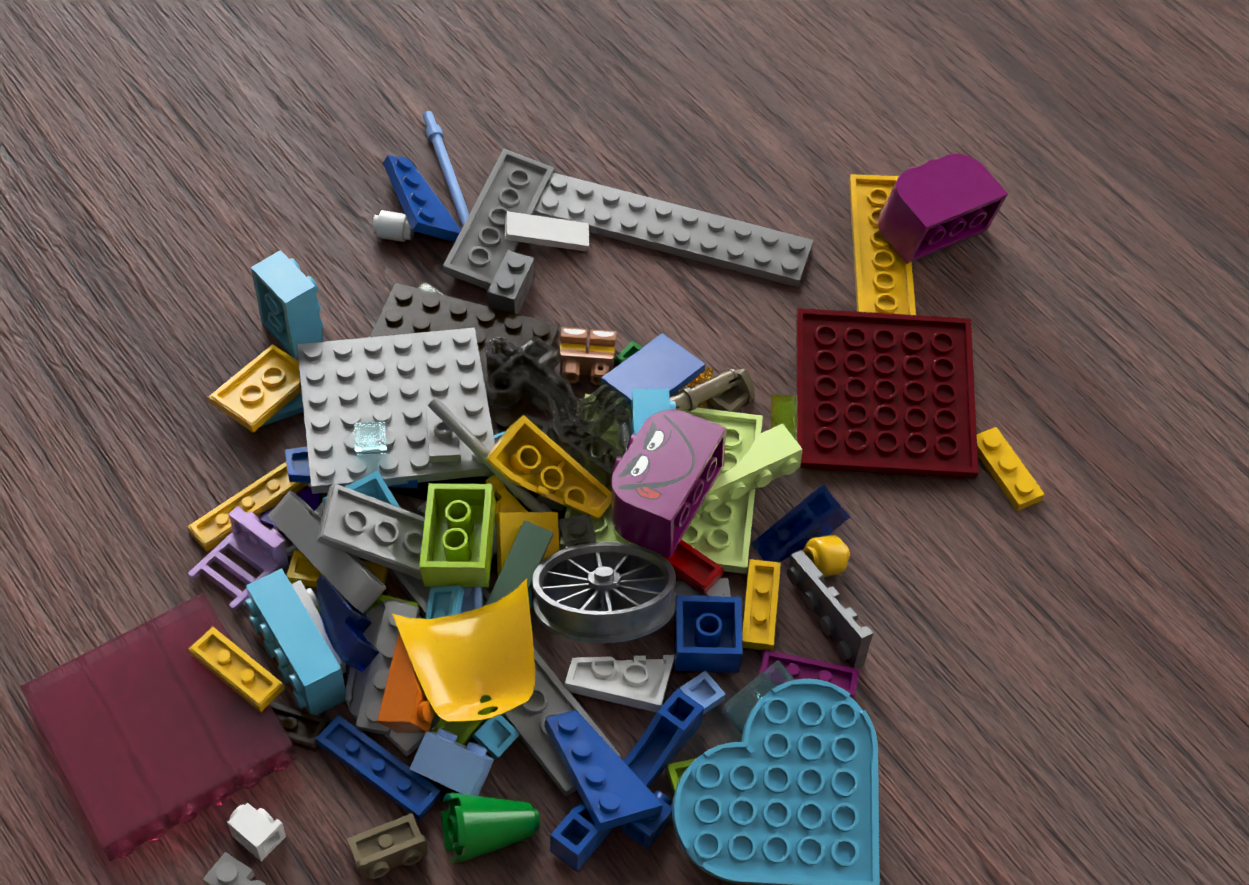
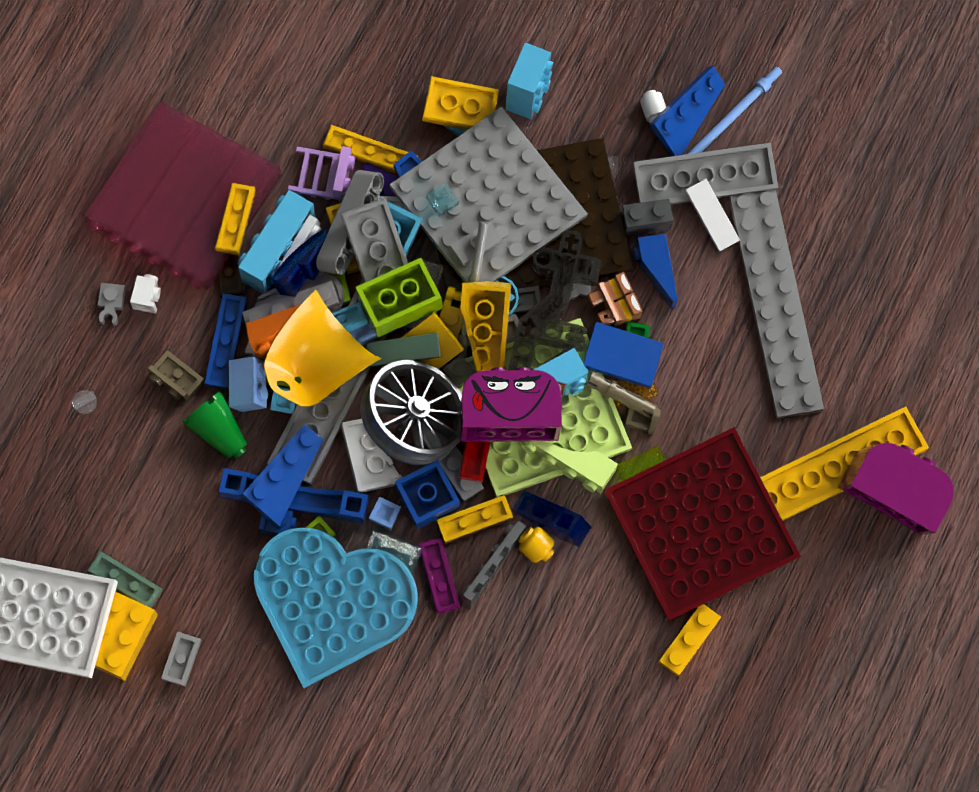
camera: 60 degrees right, 20 degrees up
(571, 302) = (656, 264): none -> blue slope

